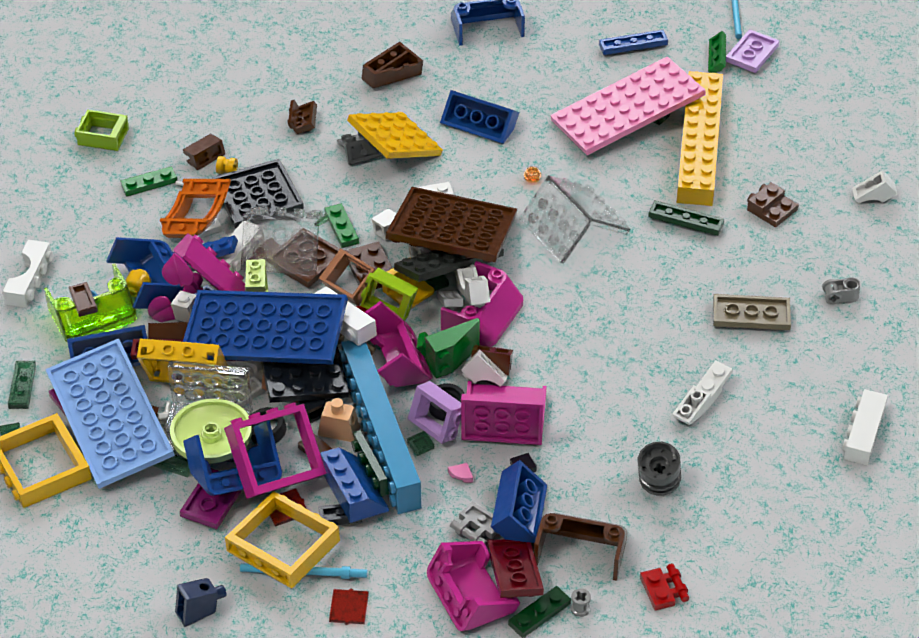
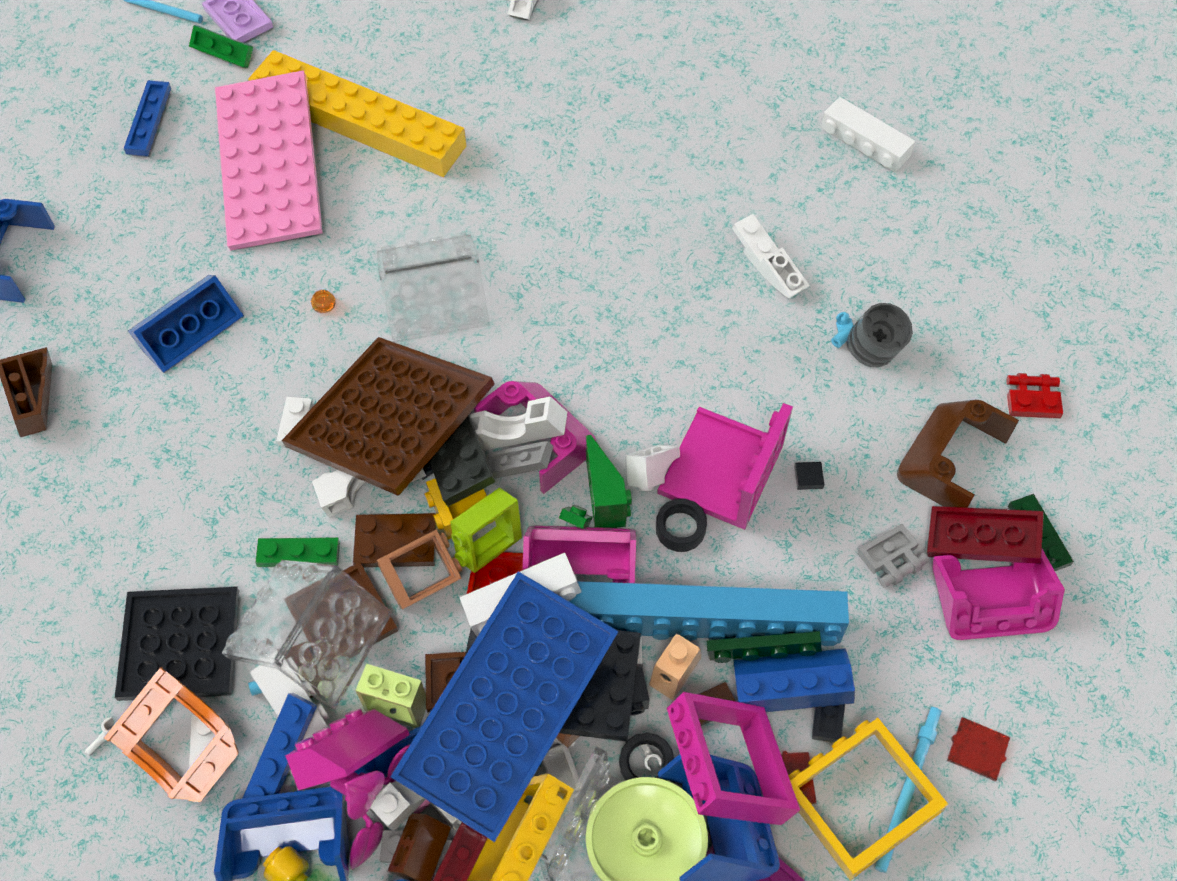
camera: 70 degrees left, 15 degrees up
(148, 181) = (62, 794): green plate -> none
(204, 151) = (48, 692): reddish brown hinge -> none
(226, 165) = (99, 668): yellow wheel -> none
(302, 117) = (55, 534): reddish brown bracket -> none
(358, 148) = (157, 476): dark grey bracket -> none
(394, 135) = (172, 429): yellow plate -> none
(420, 443) = (735, 575): clear green tile -> none
(423, 396) = (703, 526): lavender window -> none
(461, 472) = (800, 547): bright pink tile -> none
(499, 356) = (631, 439): reddish brown hinge -> none
(519, 504) = (884, 499): blue slope -> none
(580, 604) = (1044, 485): light grey bush -> none
(686, 218) = (480, 175): dark green plate -> none
(751, 312) = (658, 169): dark tan plate -> none
(771, 204) = (498, 91): reddish brown plate -> none
(842, 291) = (662, 78): light grey piece -> none

